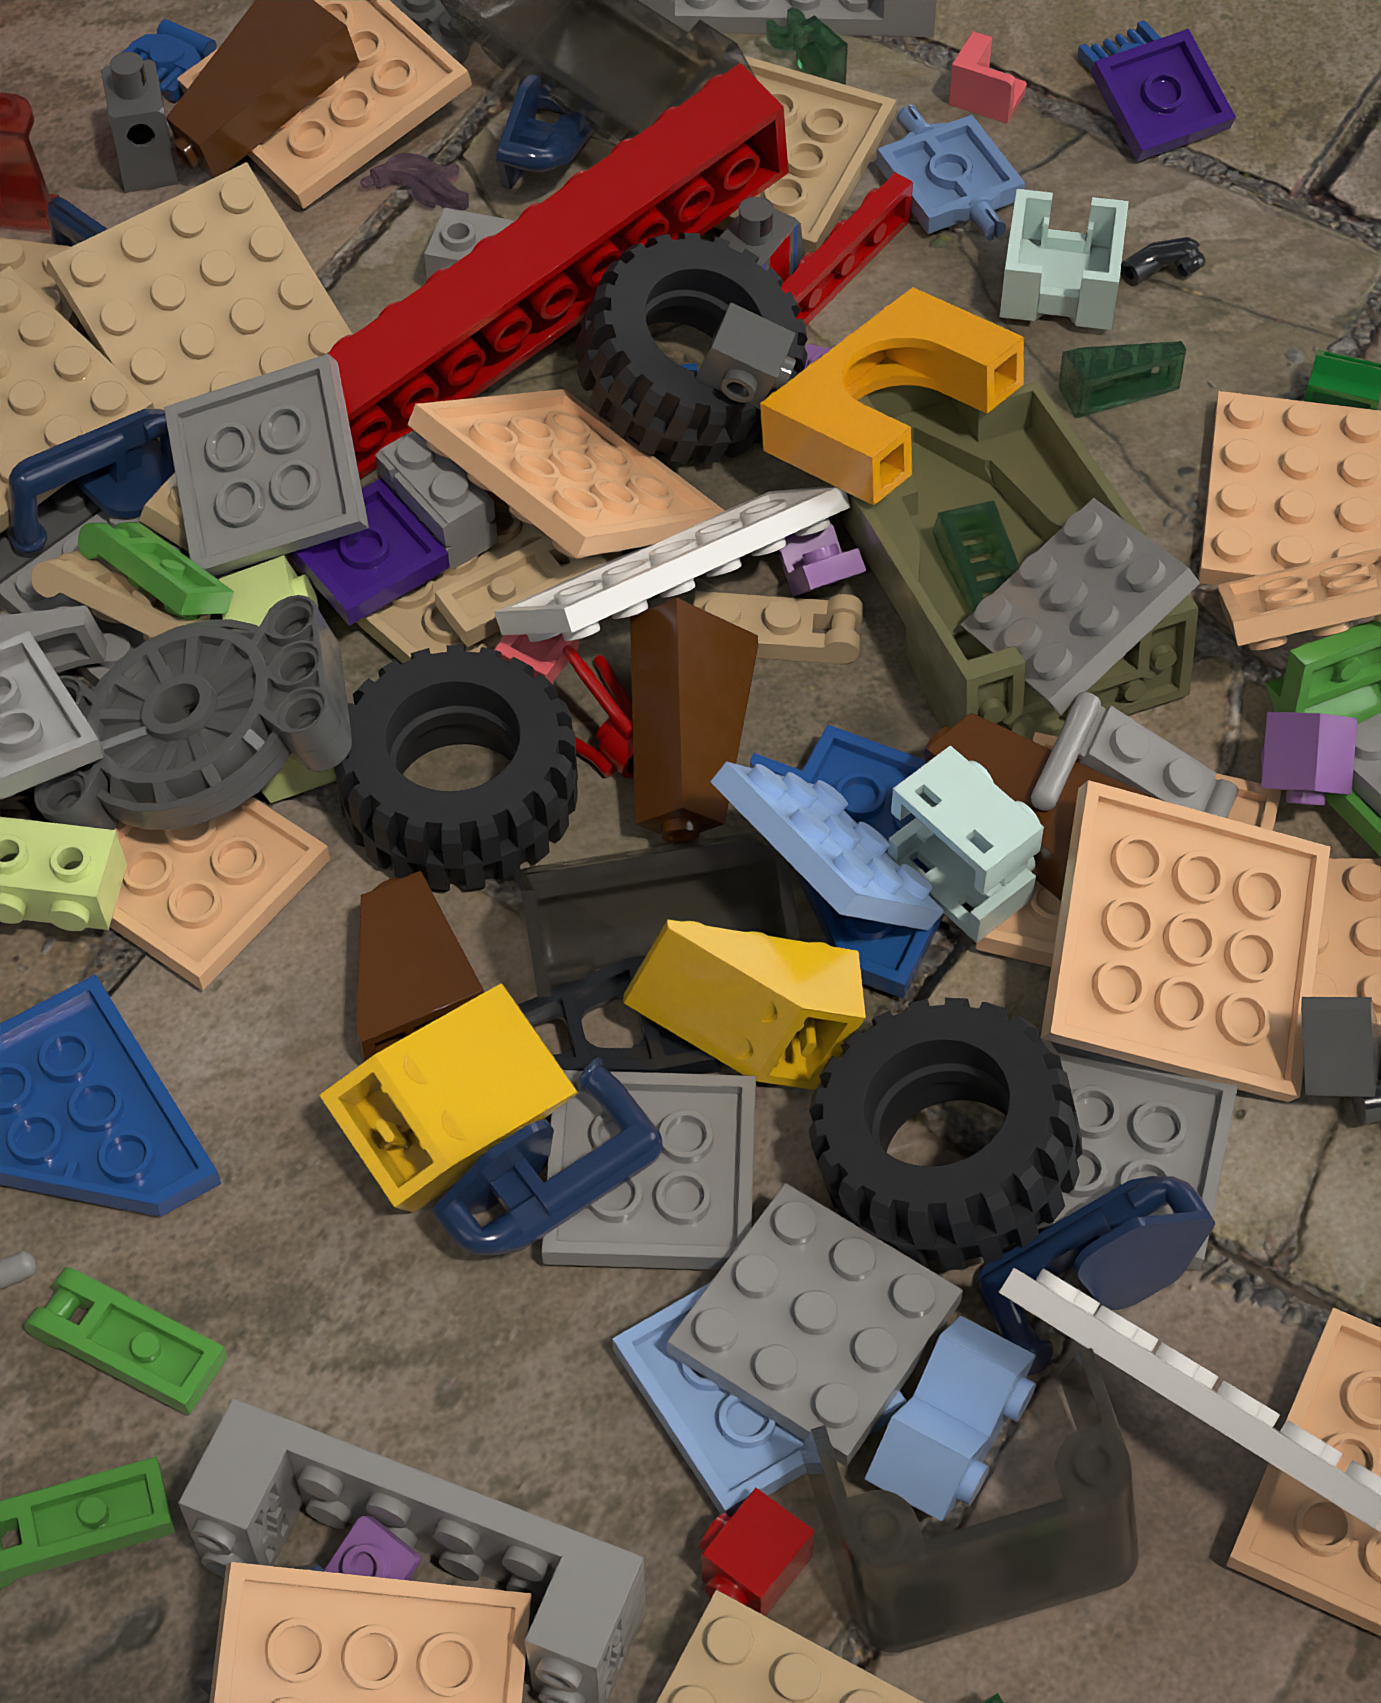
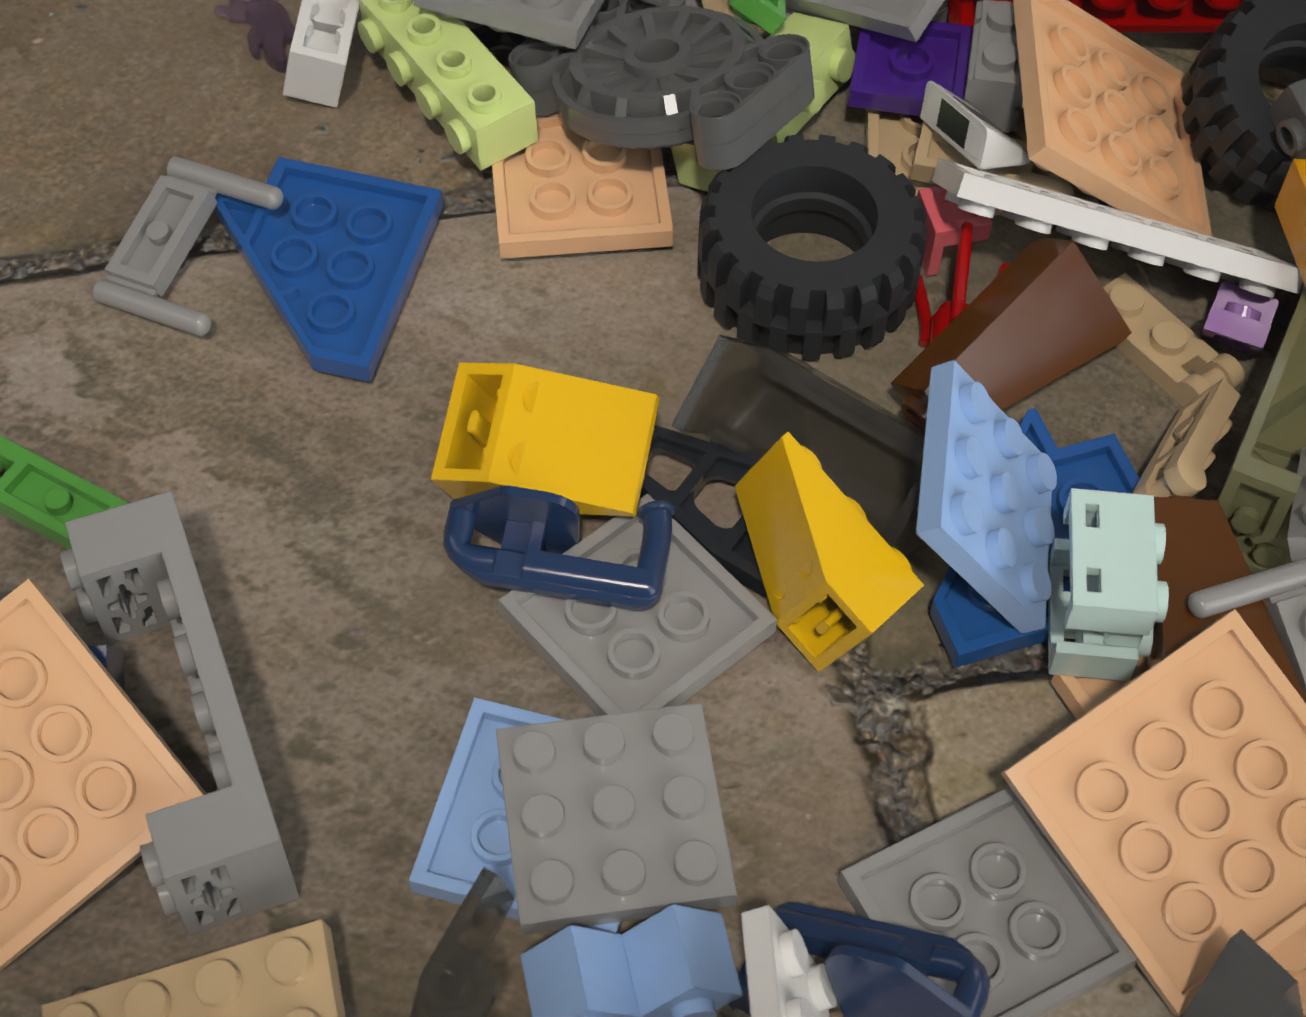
camera: 45 degrees right, 0 degrees up
(128, 1340) = (202, 424): bright green plate -> none
(374, 1552) = (152, 687): medium lavender bracket -> none
(407, 964) = (635, 339): reddish brown slope -> none
(488, 570) = (969, 130): none -> slope
(755, 1552) = (389, 930): red brick -> none
(893, 692) = (1188, 443): none -> tan plate
(933, 1059) = (852, 846): black tyre -> none

